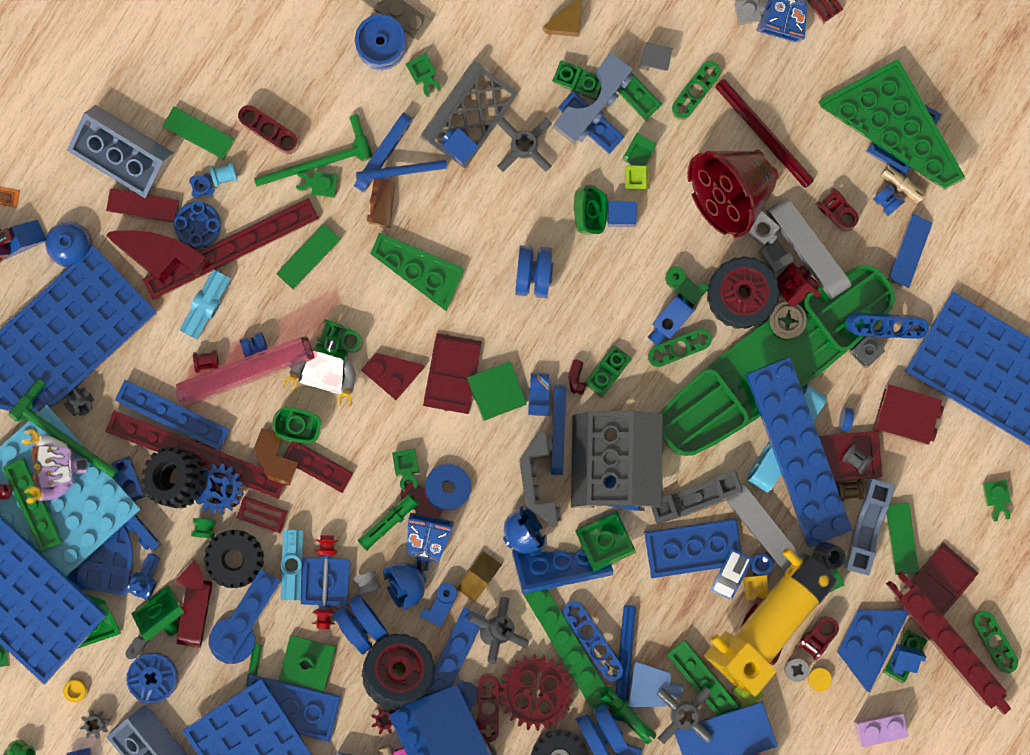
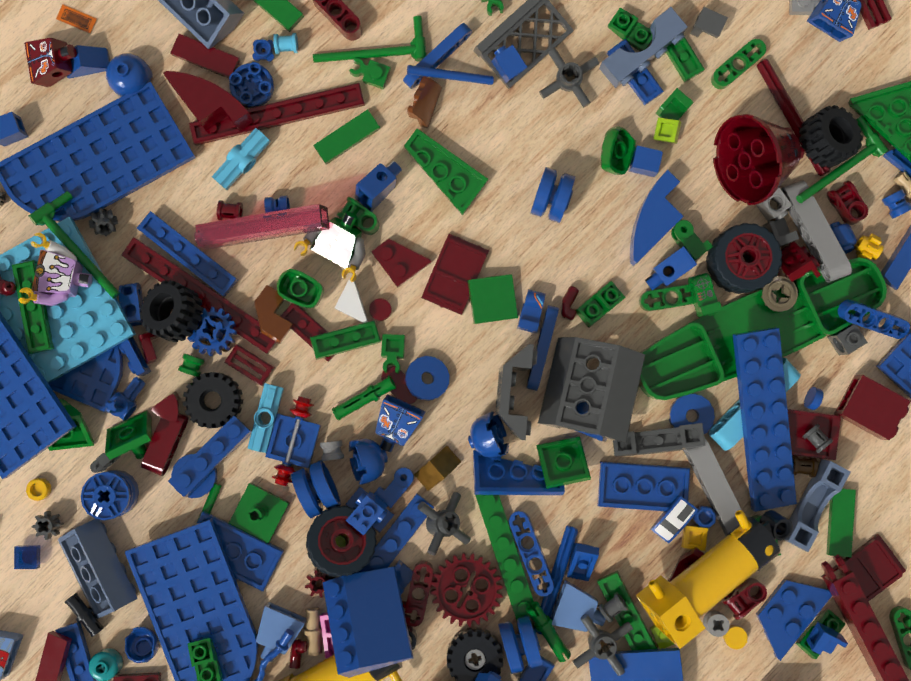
camera: 15 degrees right, 0 degrees up
(154, 520) = (147, 347): none -> dark red tile
(348, 308) = (377, 185): none -> blue torso
(353, 428) = (351, 303): none -> white slope
(355, 467) = (345, 340): none -> green tile
(383, 427) = (380, 309): none -> dark red tile
(419, 634) = (368, 512): none -> blue tile
(643, 270) = (654, 218): none -> blue slope
(647, 637) = (582, 561): none -> blue slope
(687, 675) = (613, 607): none -> dark grey bush
(710, 339) = (703, 295): none -> green leg
(726, 450) = (701, 405): none -> blue tile
(793, 159) = (830, 136): none -> black tyre
(839, 248) = (844, 236): none -> blue head
(853, 144) = (874, 146): none -> green bar
(869, 251) = (869, 247): none -> yellow gear

